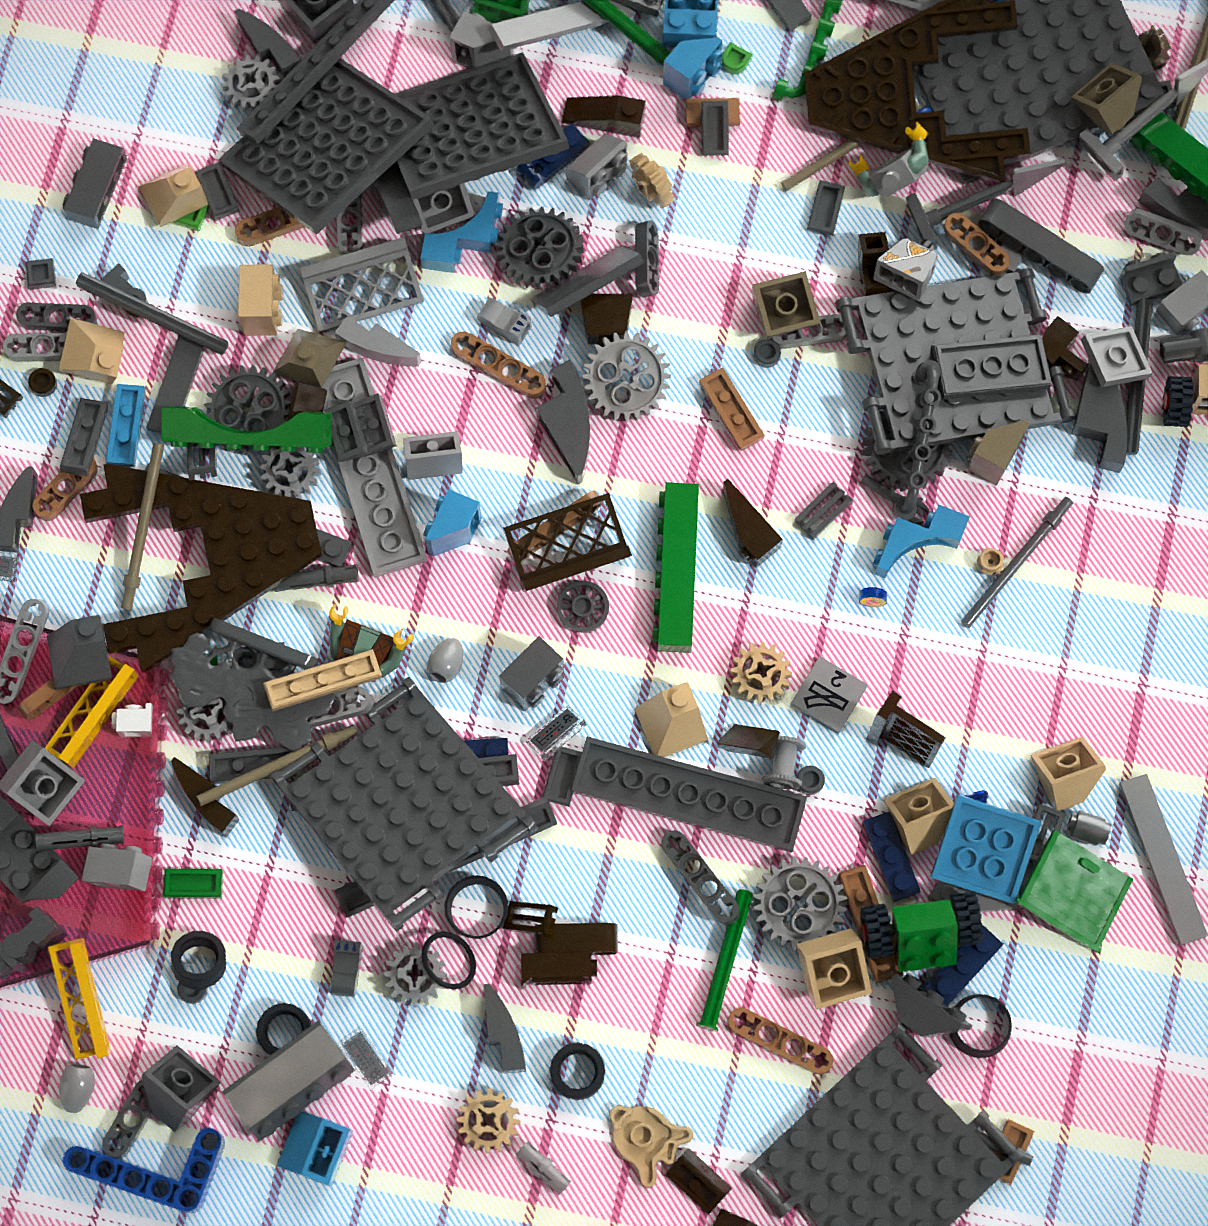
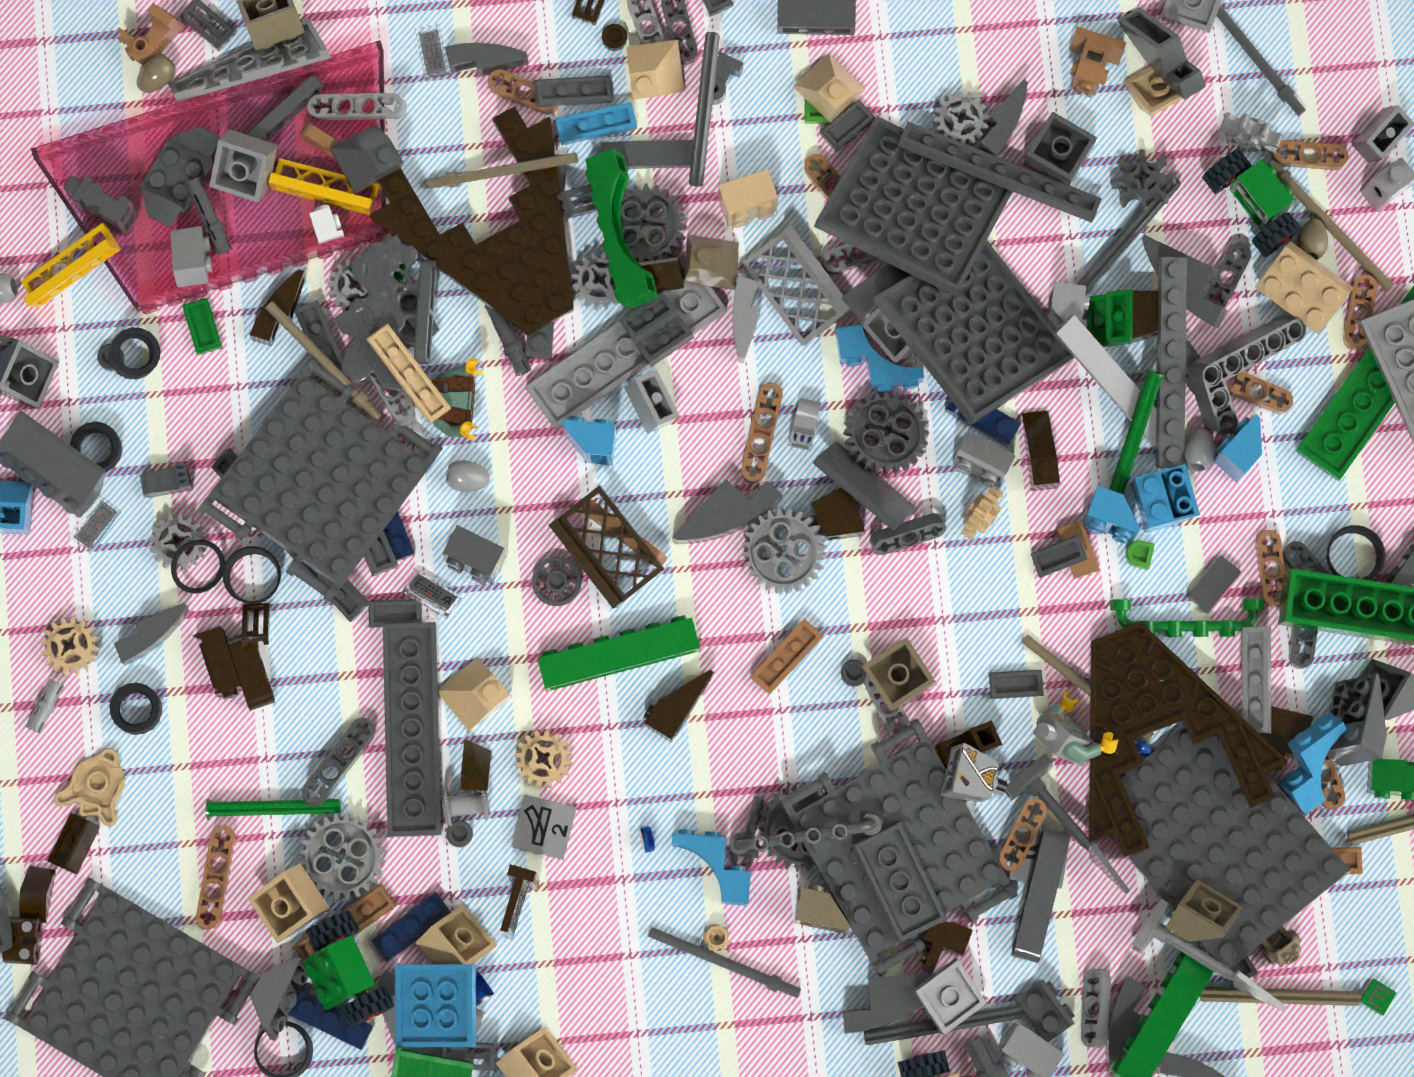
camera: 70 degrees right, 5 degrees up
(839, 494) = (738, 780): dark grey tile -> none

